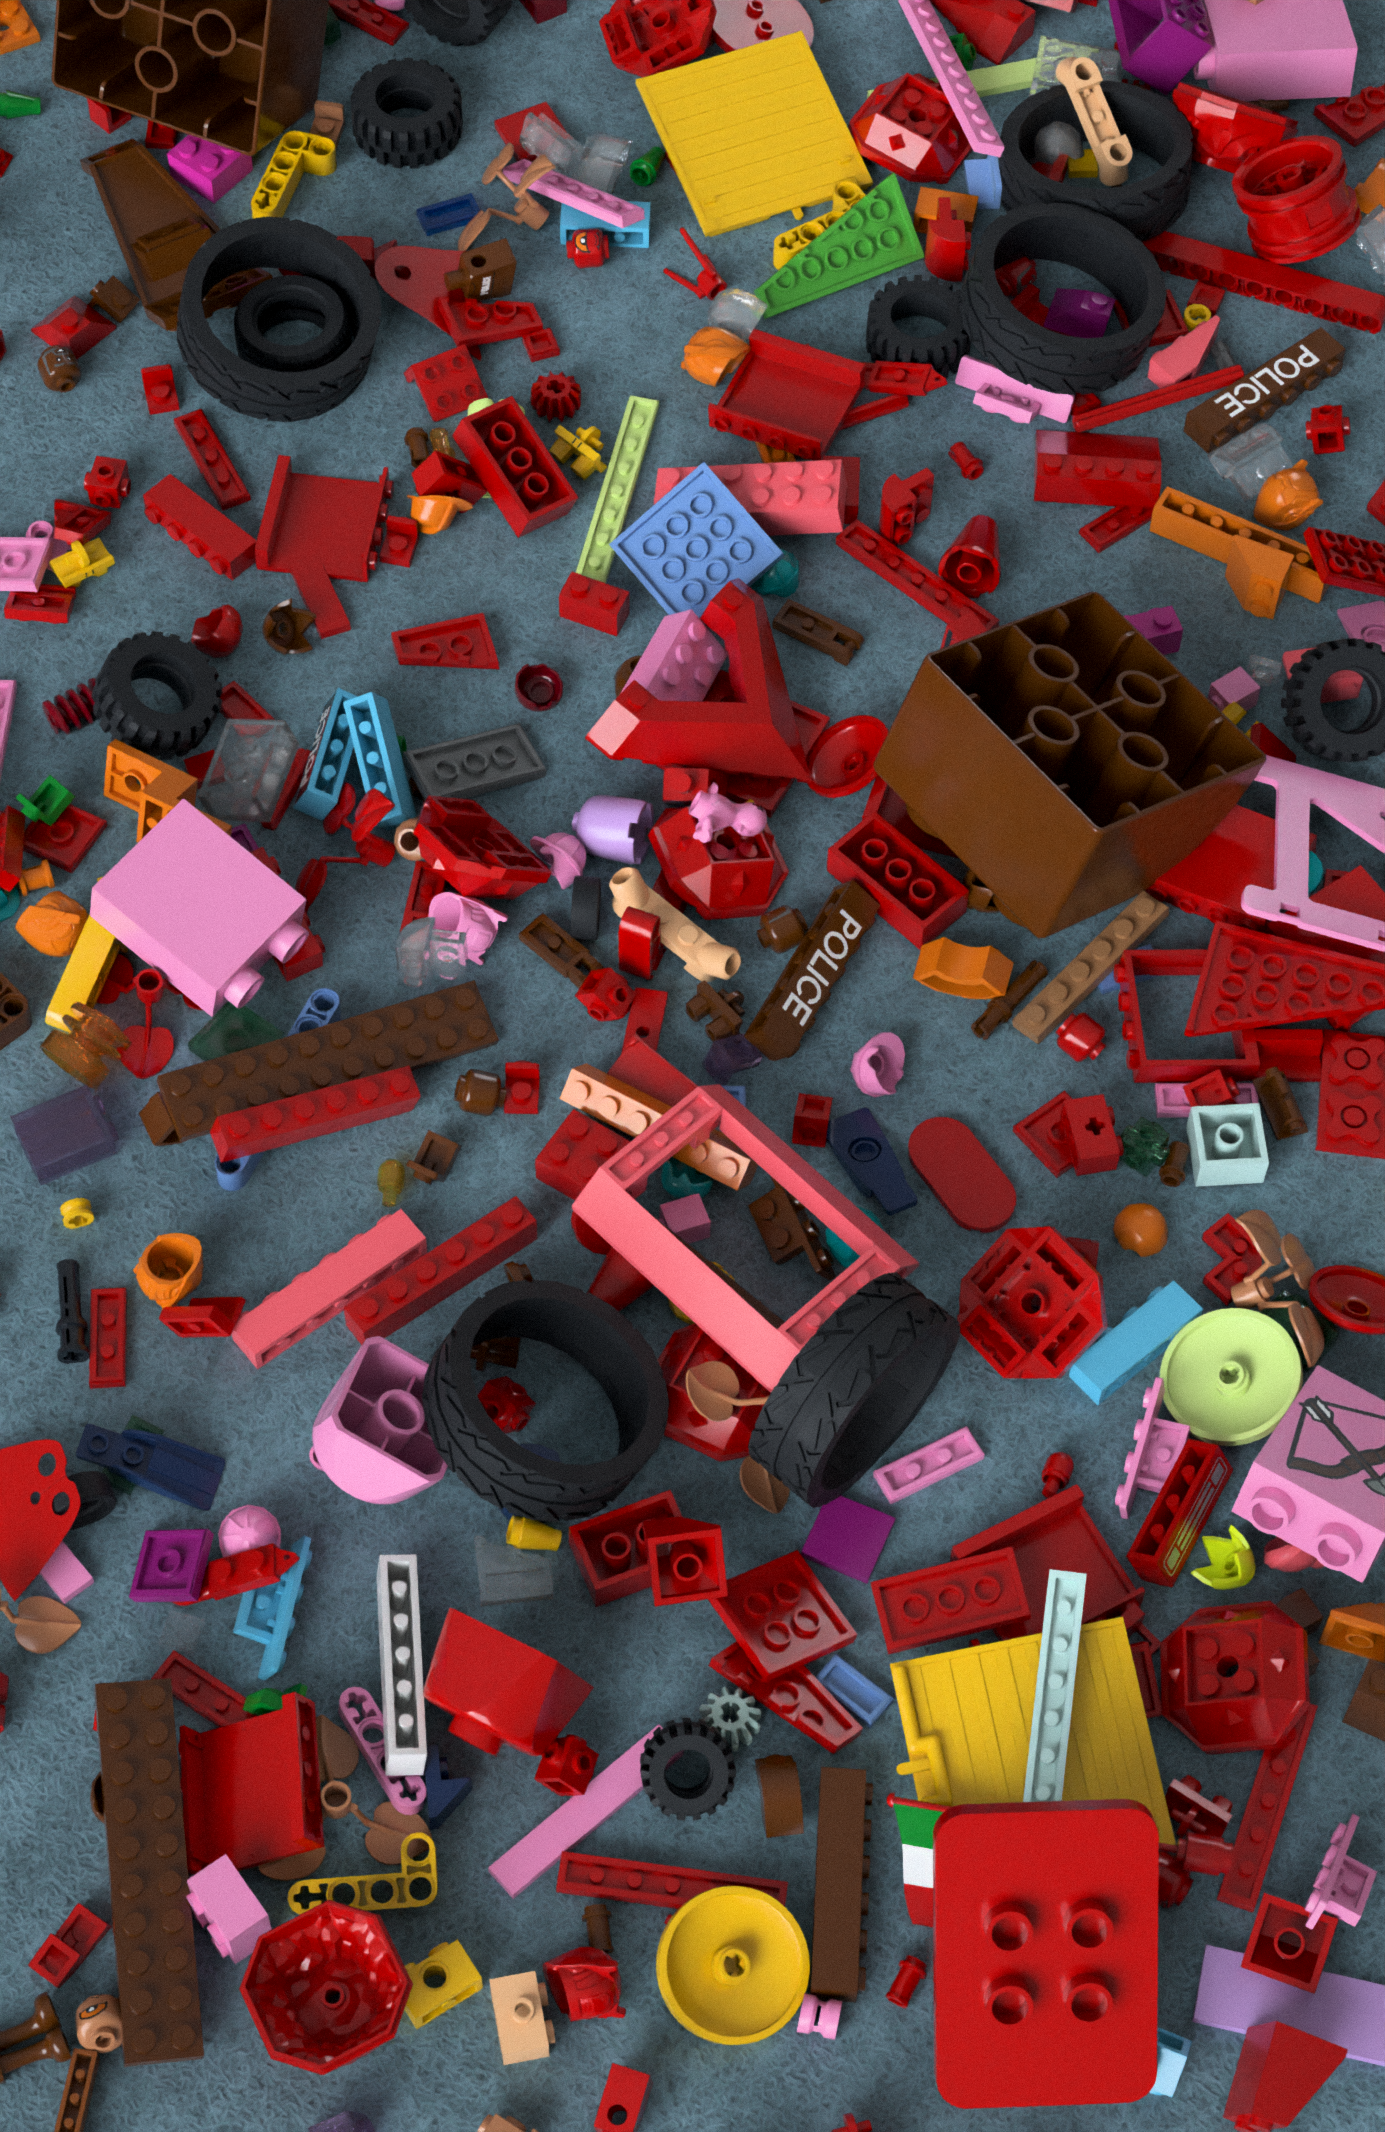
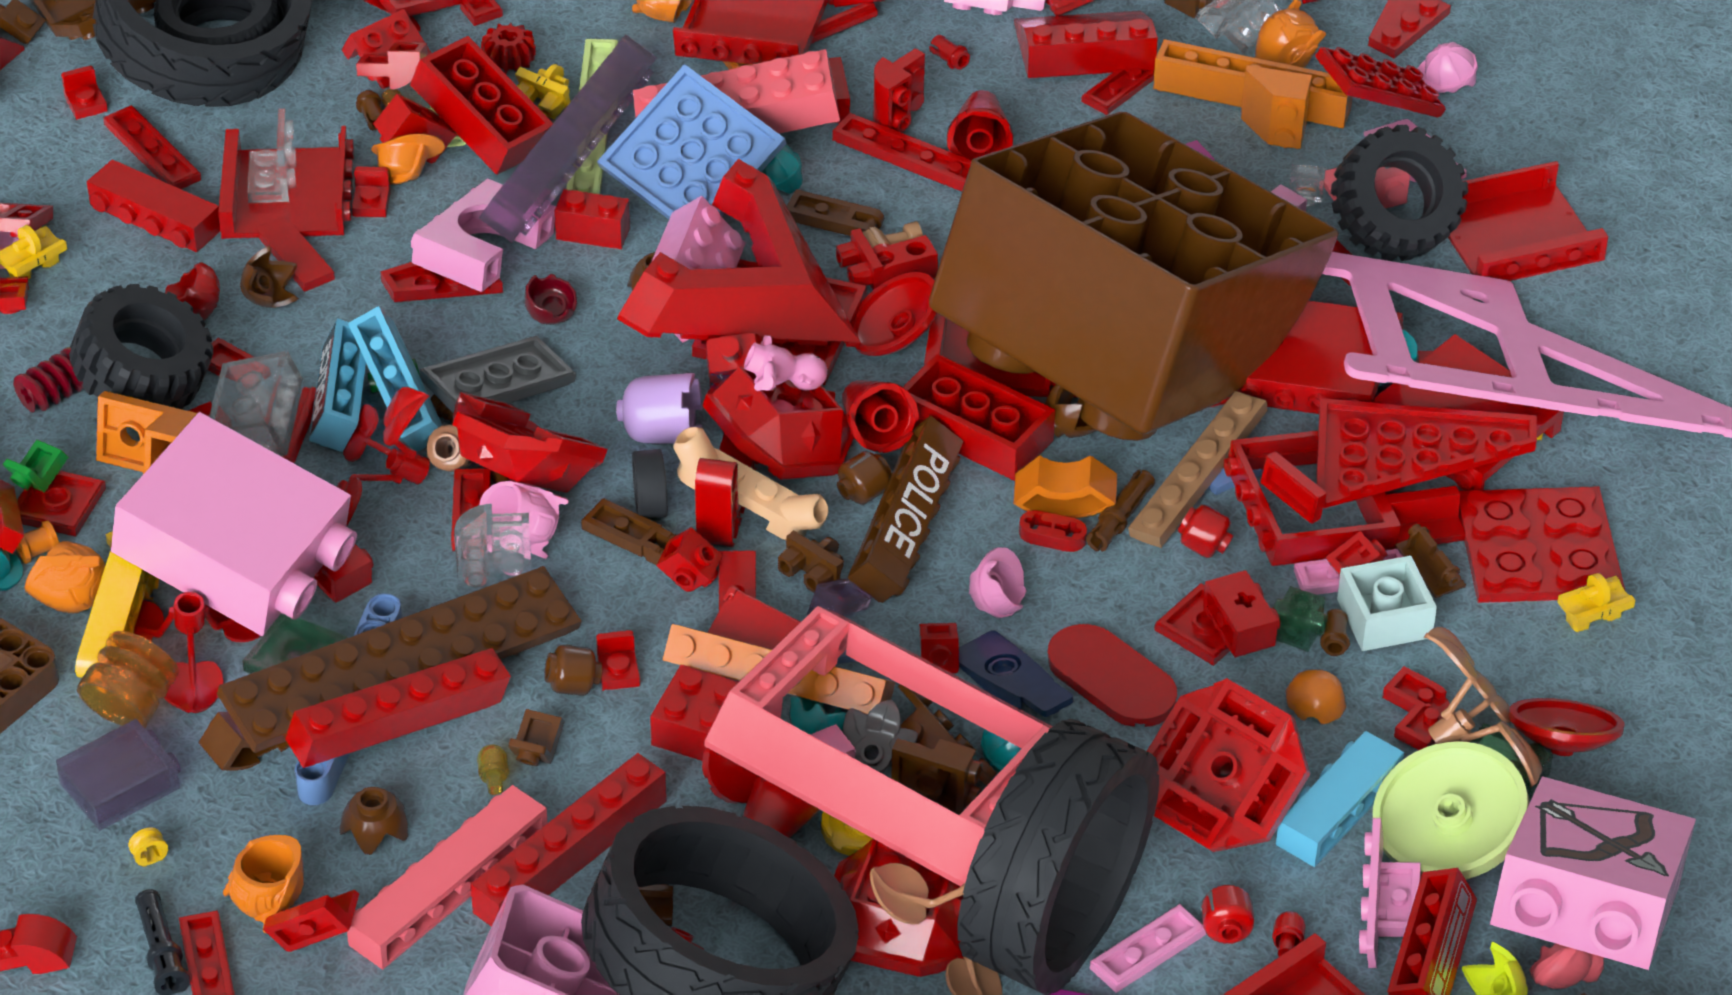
camera: 10 degrees left, 15 degrees down
(108, 482) = (45, 178): red brick -> none
(273, 1227) = (372, 816): none -> reddish brown piece
(313, 501) = (271, 170): none -> clear bracket
(447, 406) = (397, 65): none -> brick
(500, 579) = (451, 251): none -> bright pink arch
(564, 855) = (616, 437): bright pink piece -> none
(586, 517) = (568, 139): none -> clear purple brick
(738, 1206) = (876, 730): none -> dark grey plate
(779, 1267) = (940, 773): none -> reddish brown plate
(806, 867) = (879, 414): none -> red cone
(856, 687) = (886, 256): none -> red hips
(943, 1011) = (1052, 531): none -> red beam
(1005, 1445) = (1227, 914): none -> red head
(1167, 1014) = (1293, 487): none -> red tile

